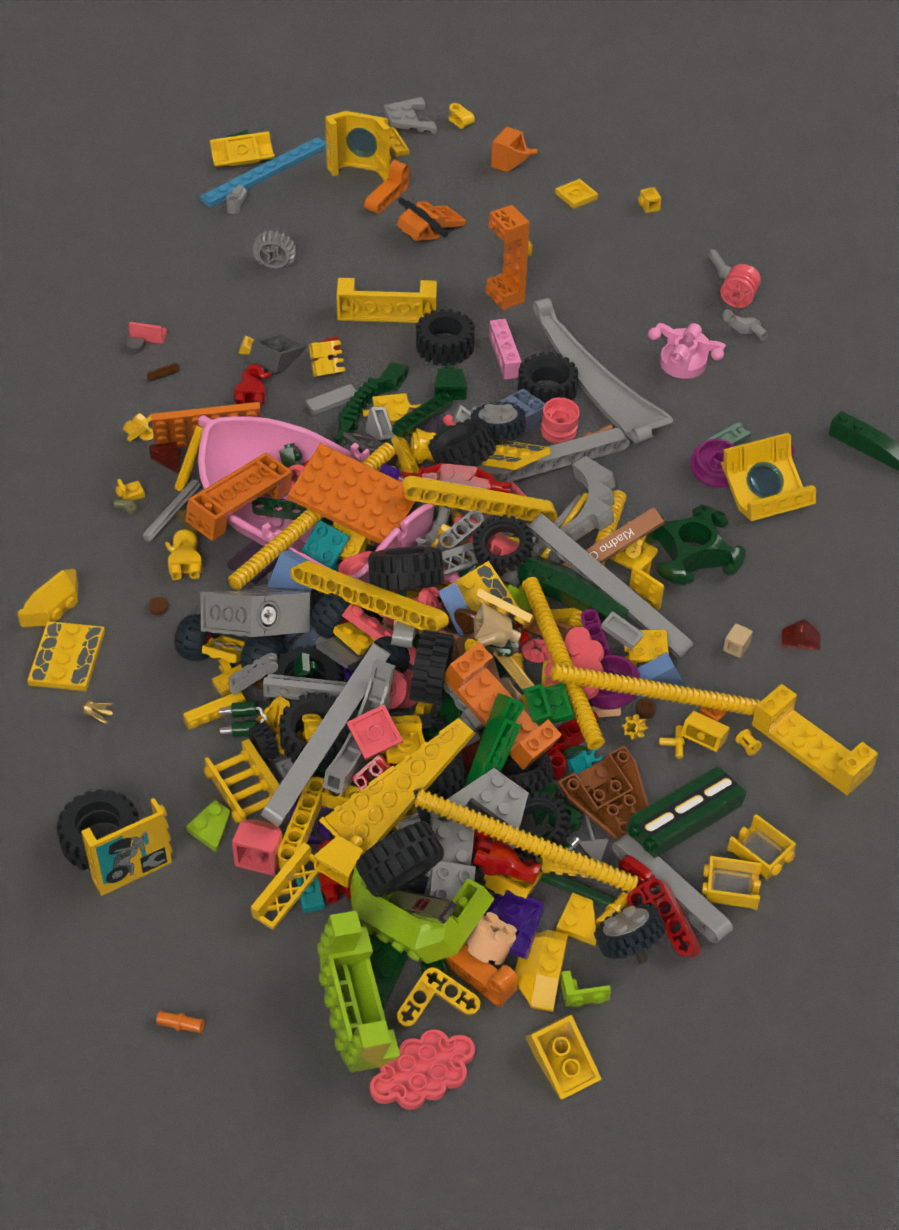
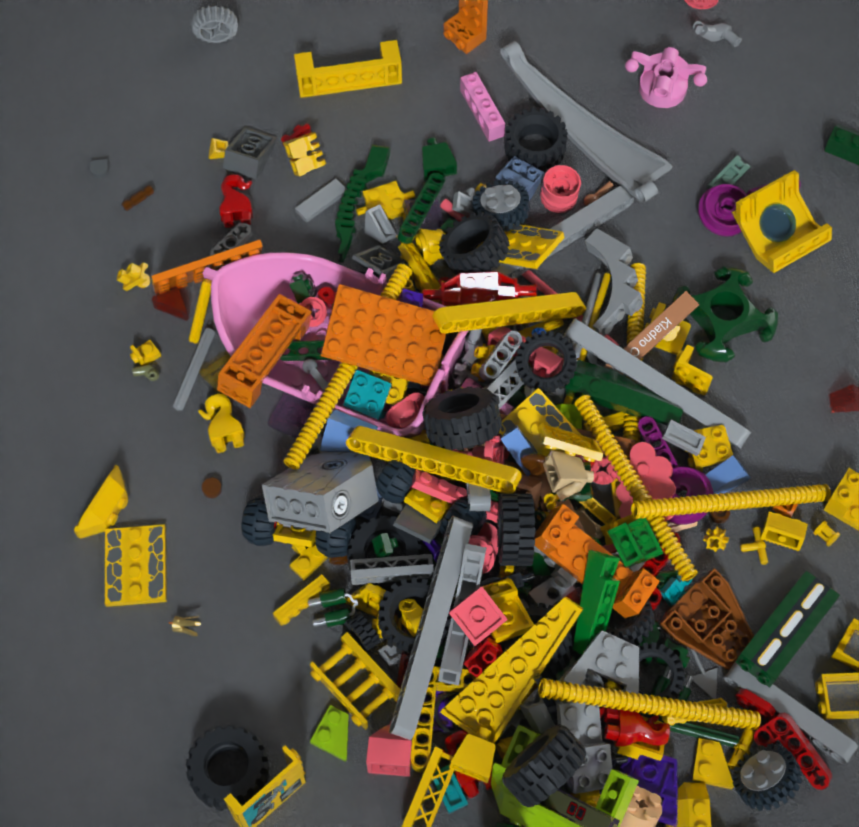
camera: 10 degrees left, 15 degrees up
(150, 332) = (108, 150): coral panel -> none
(248, 675) = (328, 562): light grey hinge -> none
(280, 521) = (310, 367): none -> light grey piece
(441, 349) = (418, 120): black tyre -> none
(737, 640) = (791, 417): tan brick -> none

